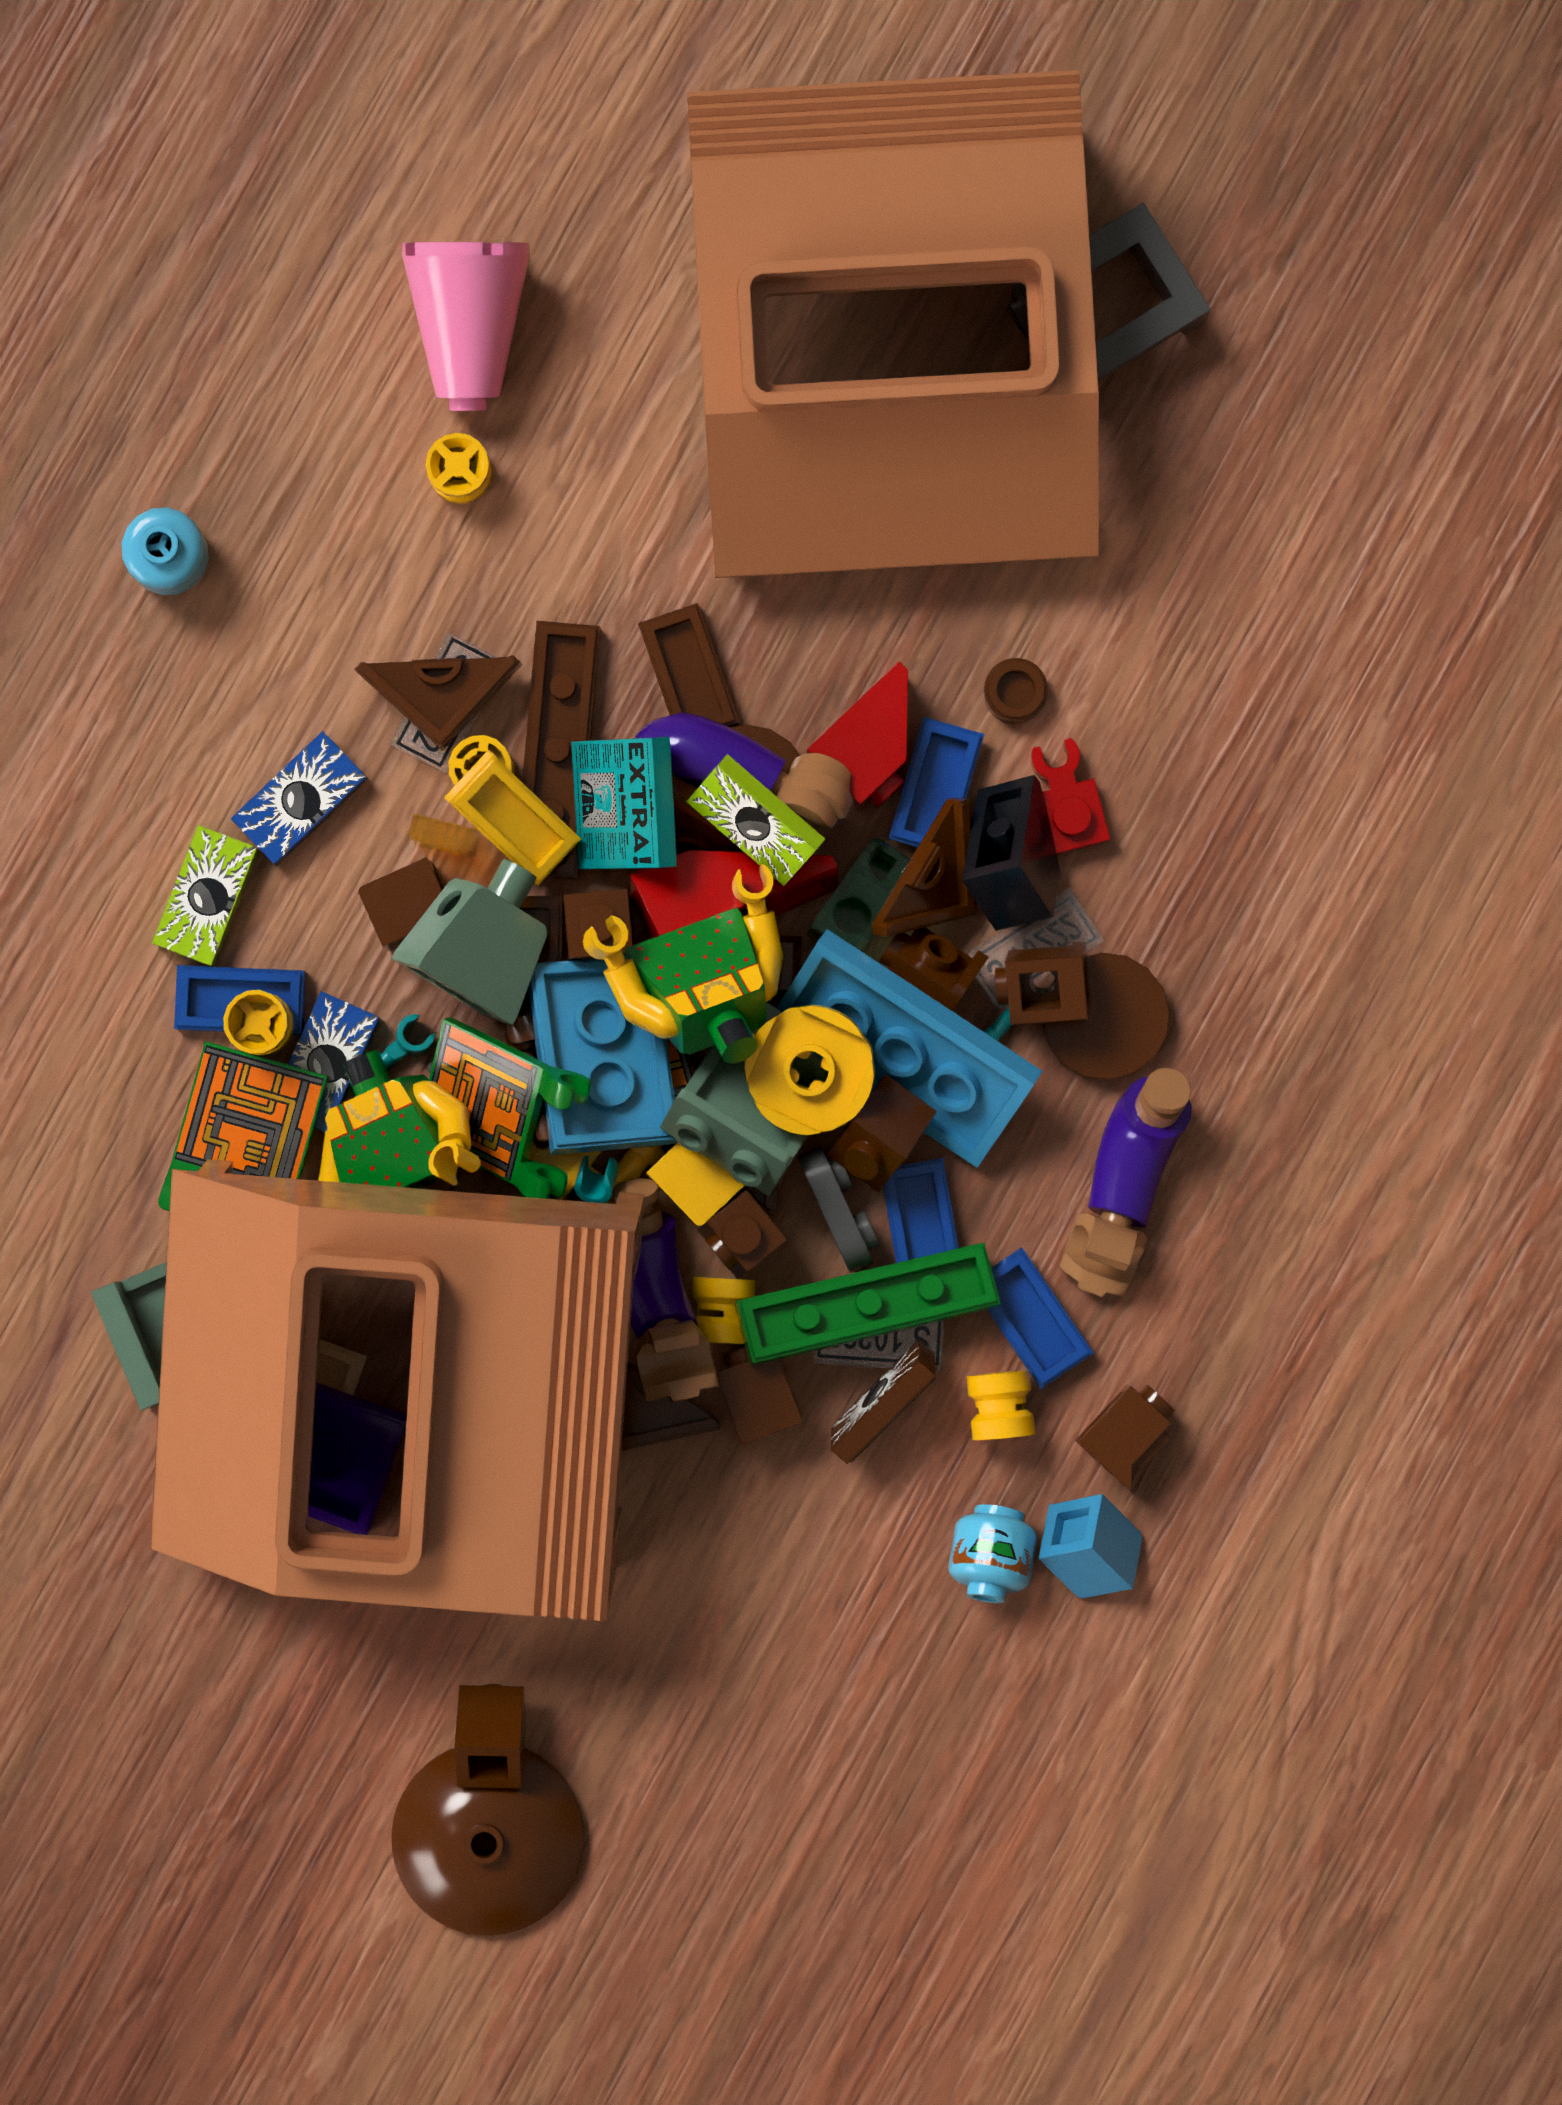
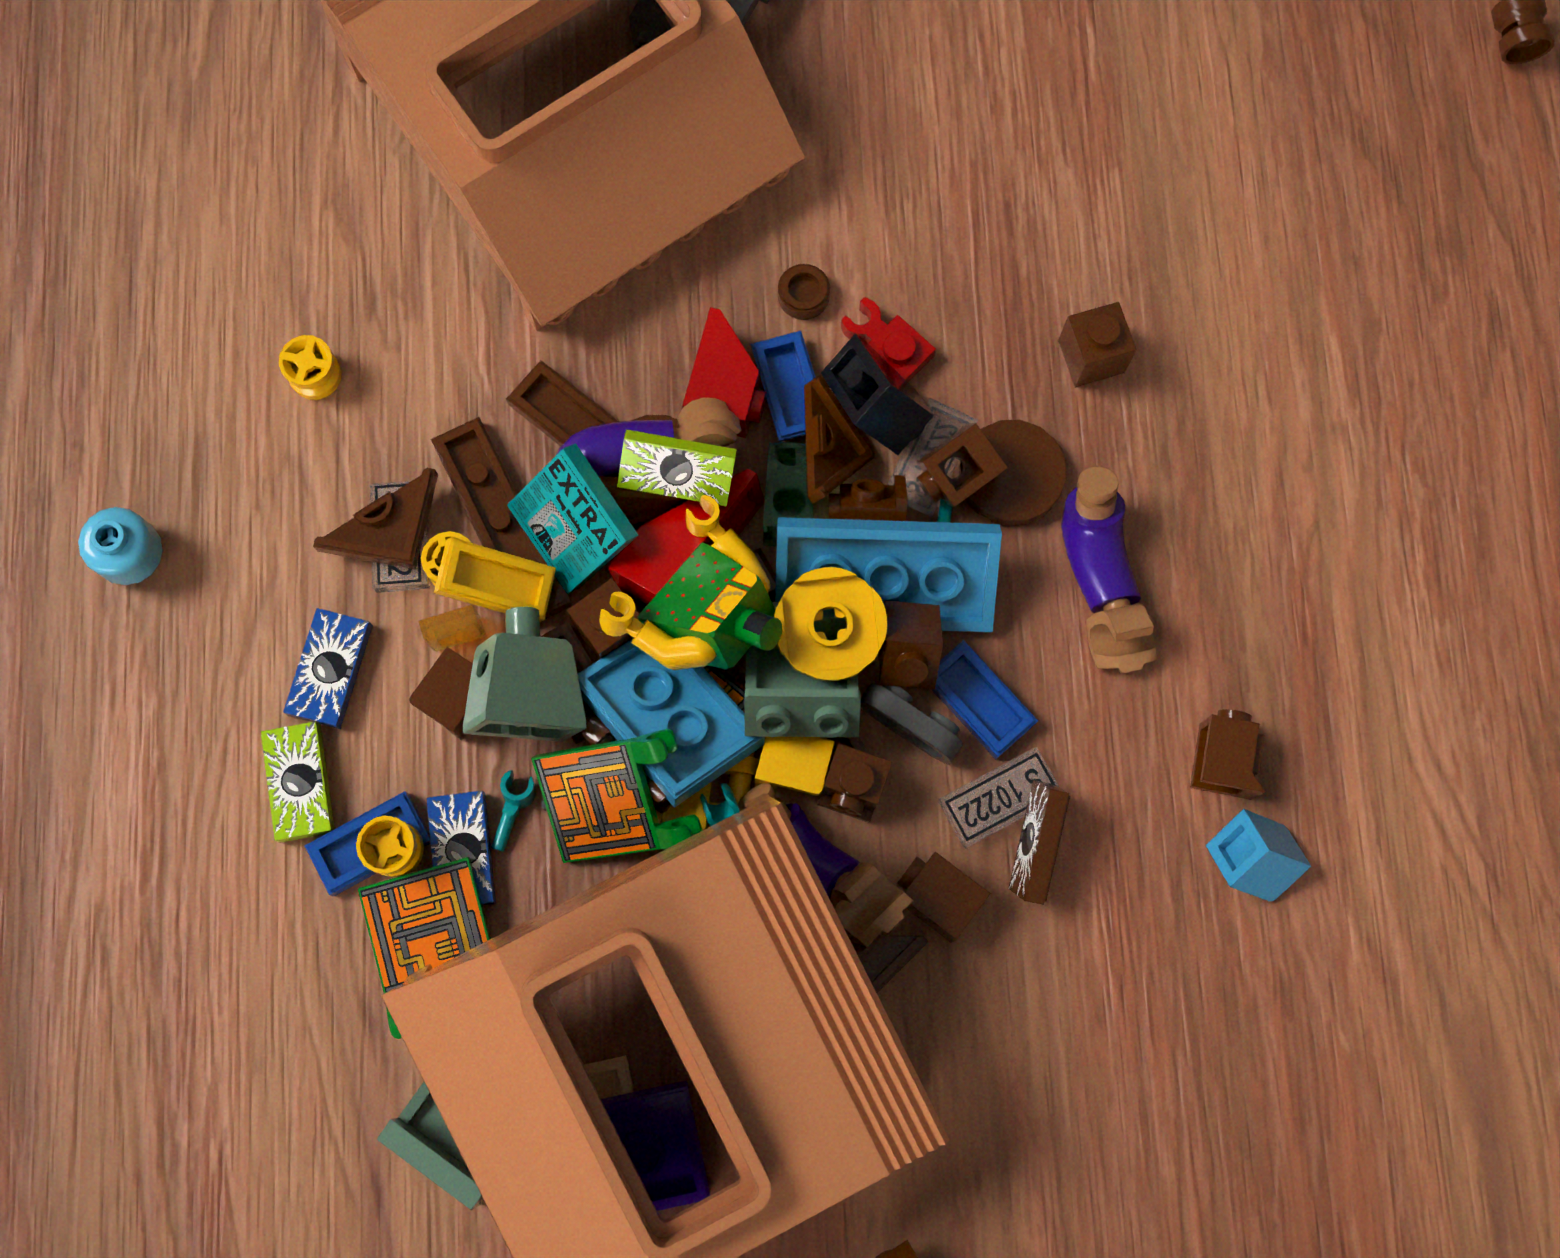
camera: 40 degrees left, 10 degrees down
(395, 1130) = (544, 860): torso -> none
(466, 313) = (249, 251): bright pink cone -> none
(716, 1296) = (874, 835): yellow wheel -> none
(867, 1304) = (979, 776): green tile -> none
(992, 1552) = (1191, 905): medium azure head -> none
(1001, 1405) = (1122, 789): yellow wheel -> none
(1035, 1320) = (1102, 716): blue tile -> none
(1275, 938) = (1097, 344): none -> reddish brown brick

